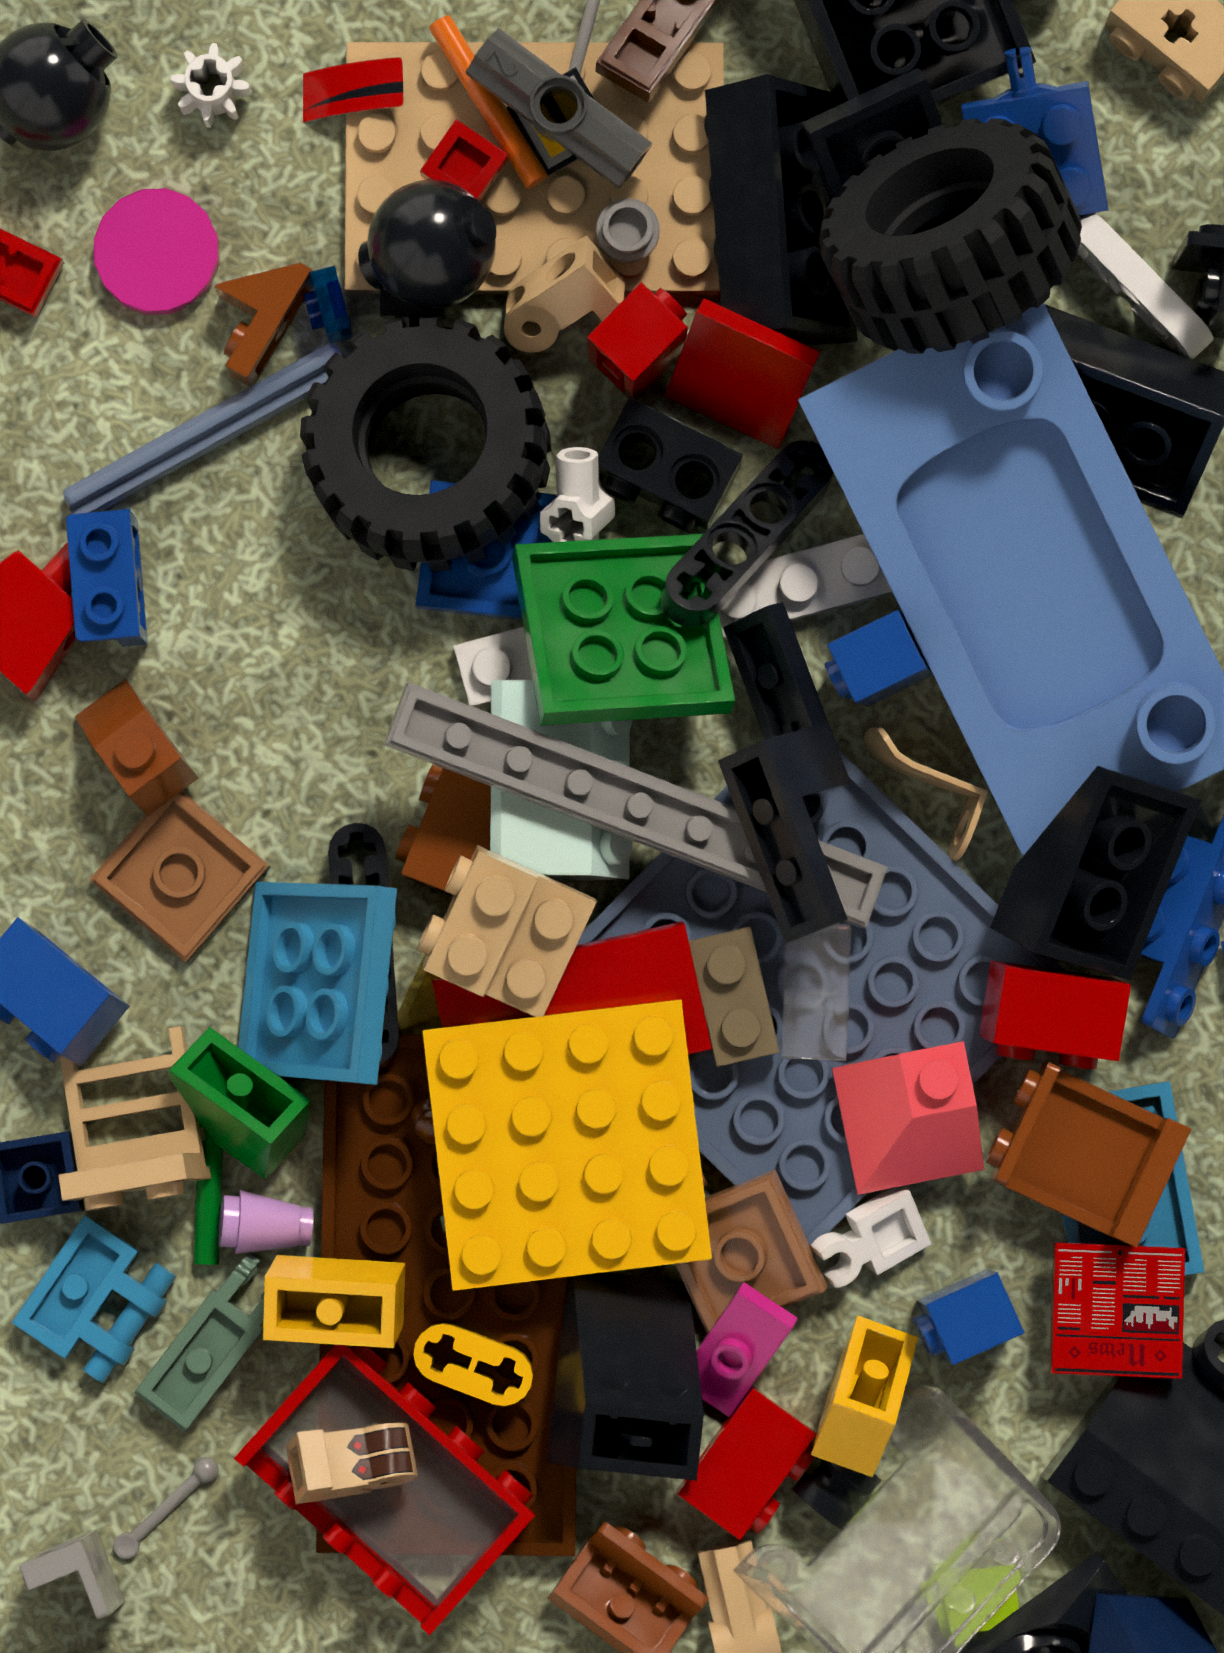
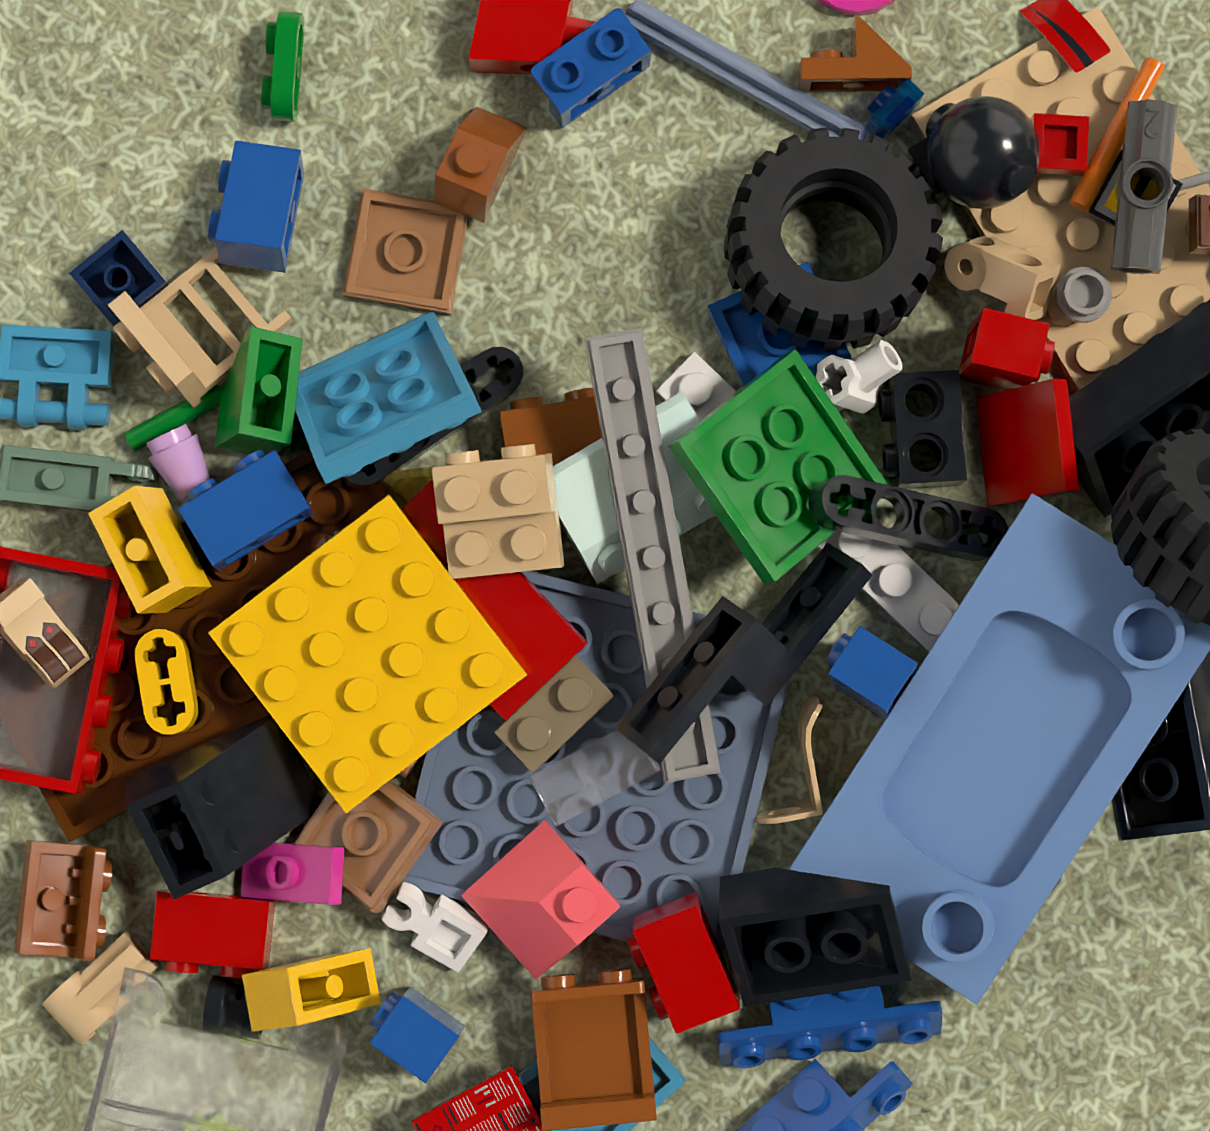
camera: 55 degrees right, 0 degrees up
(347, 1183) = (244, 509): none -> blue brick

